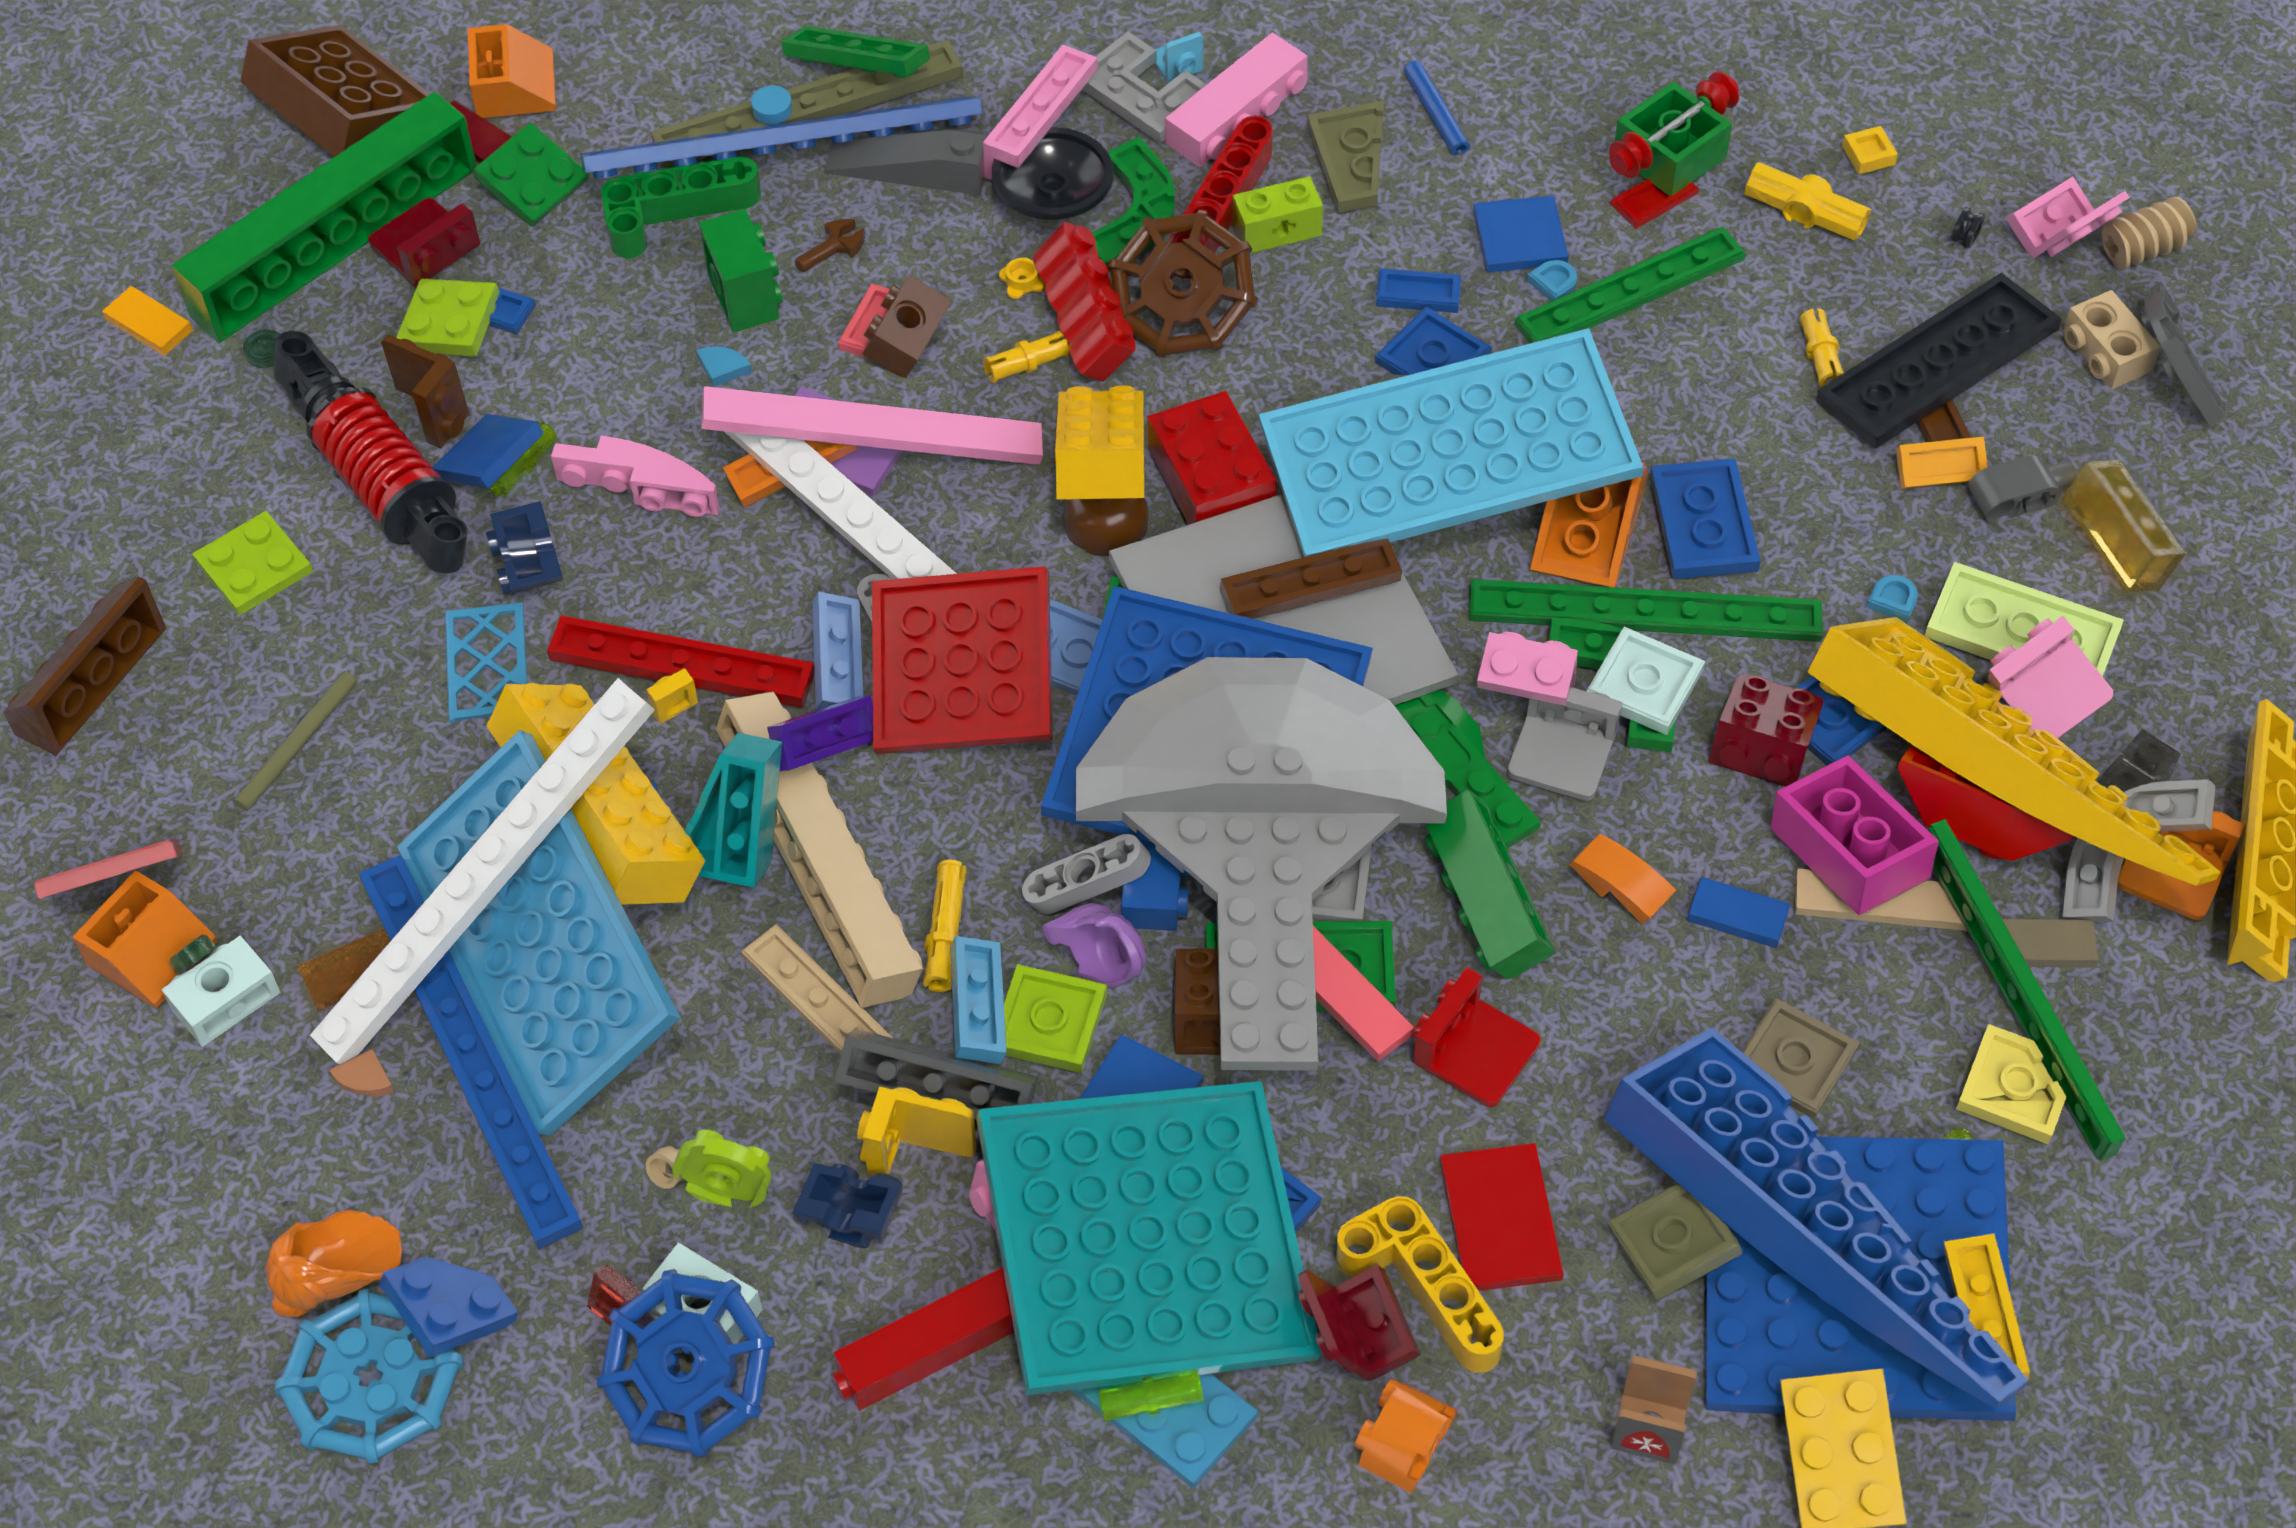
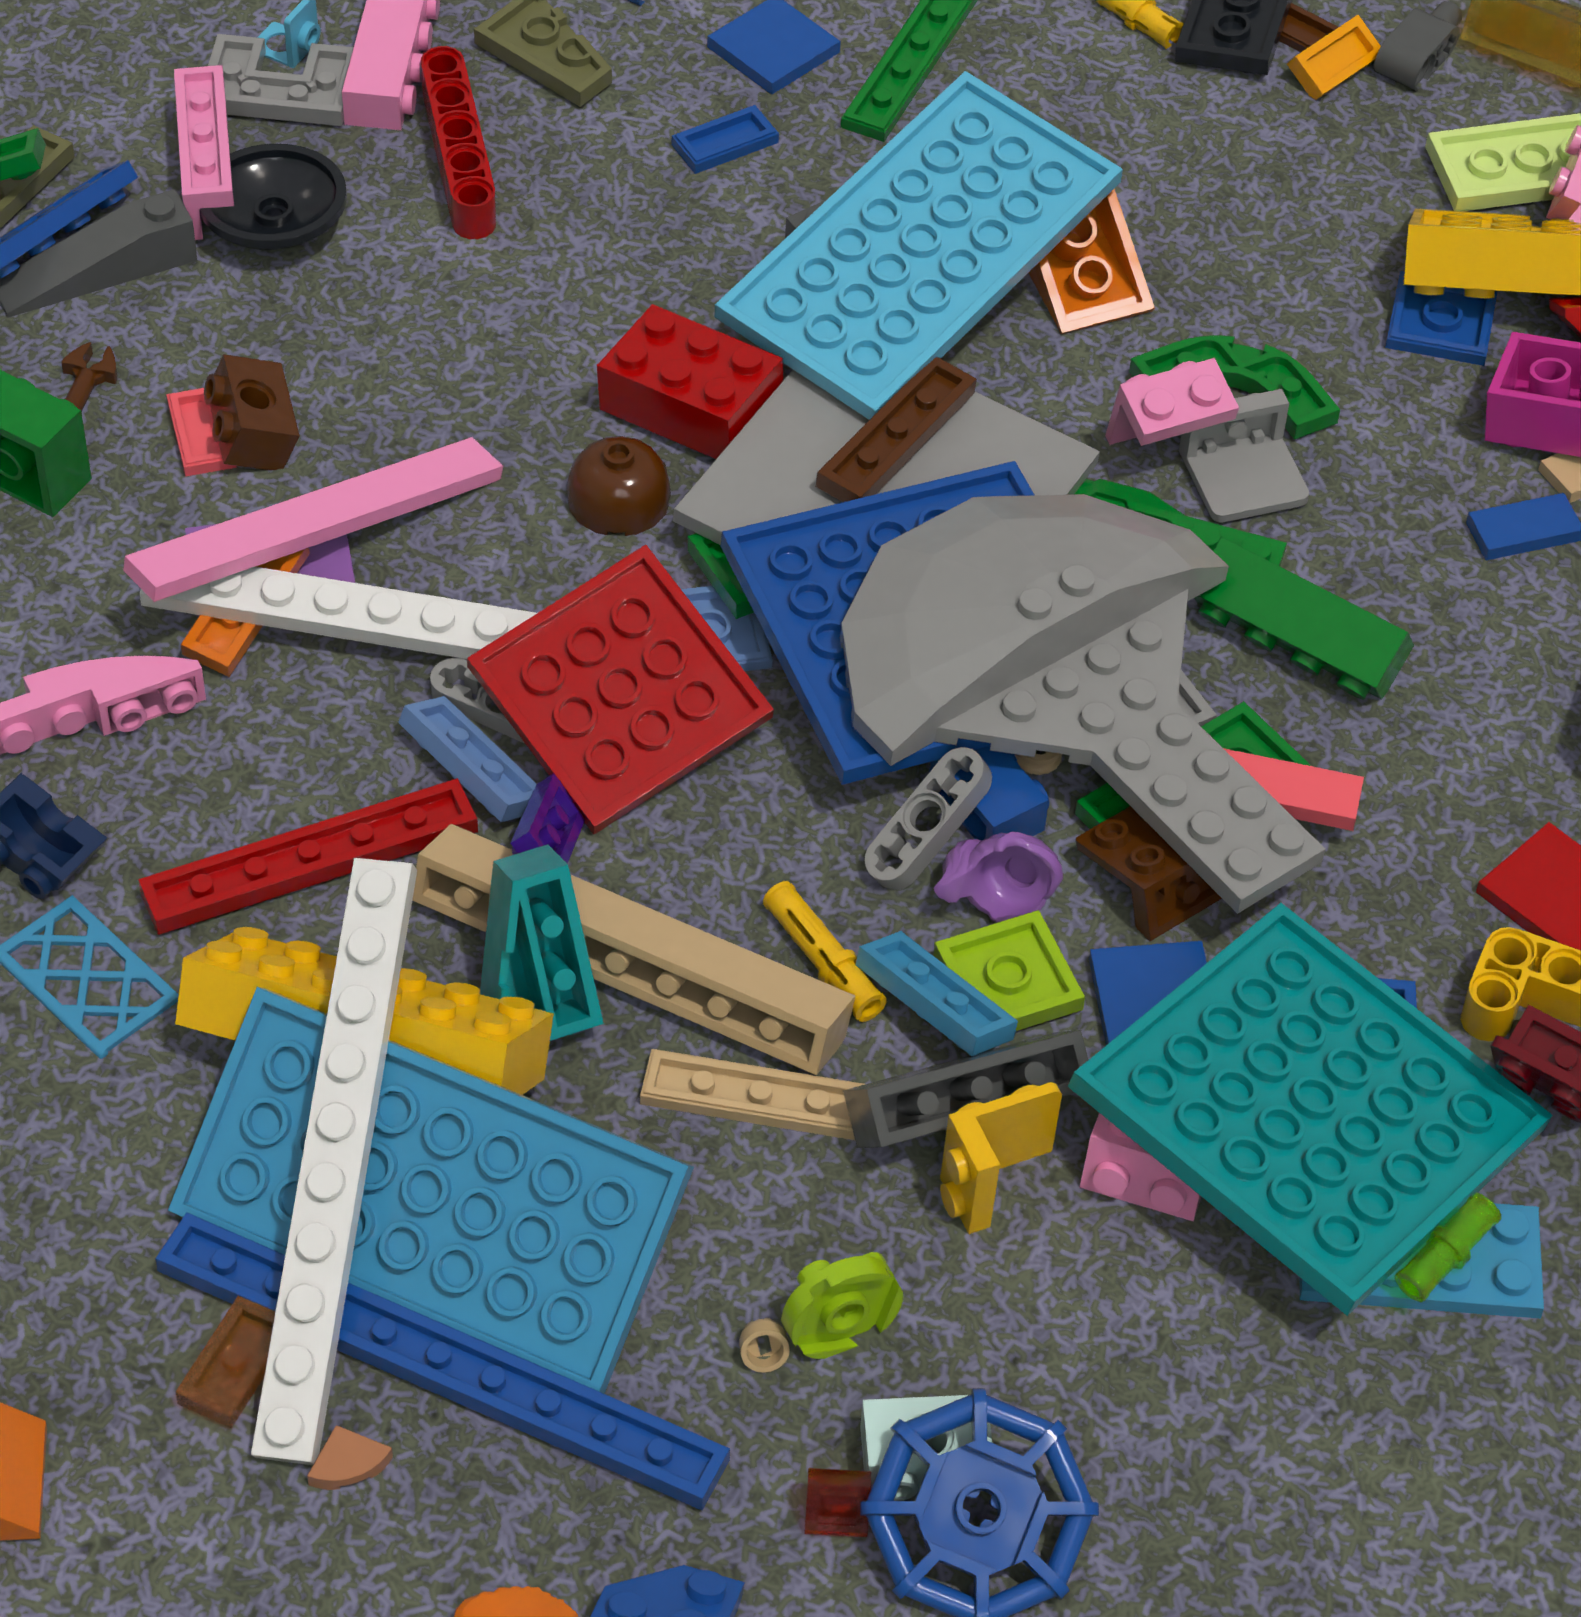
camera: 40 degrees left, 5 degrees down
(191, 954) = (50, 1447): clear green tile -> none
(211, 1013) = (109, 1503): light aqua brick -> none
(672, 695) = (330, 892): yellow plate -> none
(723, 364) = (74, 550): dark azure tile -> none
(847, 1205) = (991, 1264): dark blue cylinder -> none
(924, 1341) = (1184, 1334): red brick -> none
(1019, 269) = (320, 313): yellow plate -> none
(1026, 356) = (396, 384): yellow pin -> none
(1085, 303) = (417, 299): red brick -> none
(1100, 443) = (580, 411): yellow brick -> none
(1152, 195) = (391, 182): green plate -> none
(1206, 283) = (498, 260): reddish brown plate -> none
(1278, 214) = (521, 136): lime brick -> none
(1429, 343) = (787, 183): blue tile -> none
(1473, 1042) = (1415, 768): red bracket -> none
(1553, 279) = (843, 69): dark azure tile -> none
(1630, 879) = (1393, 545): orange slope -> none
(1647, 679) = (1272, 359): light aqua tile -> none
(1648, 609) = (1196, 314): green tile -> none
(1704, 518) = (1184, 208): blue plate -> none
(1765, 729) = (1411, 357): dark red bracket -> none
(1894, 597) = (1399, 192): dark azure tile -> none

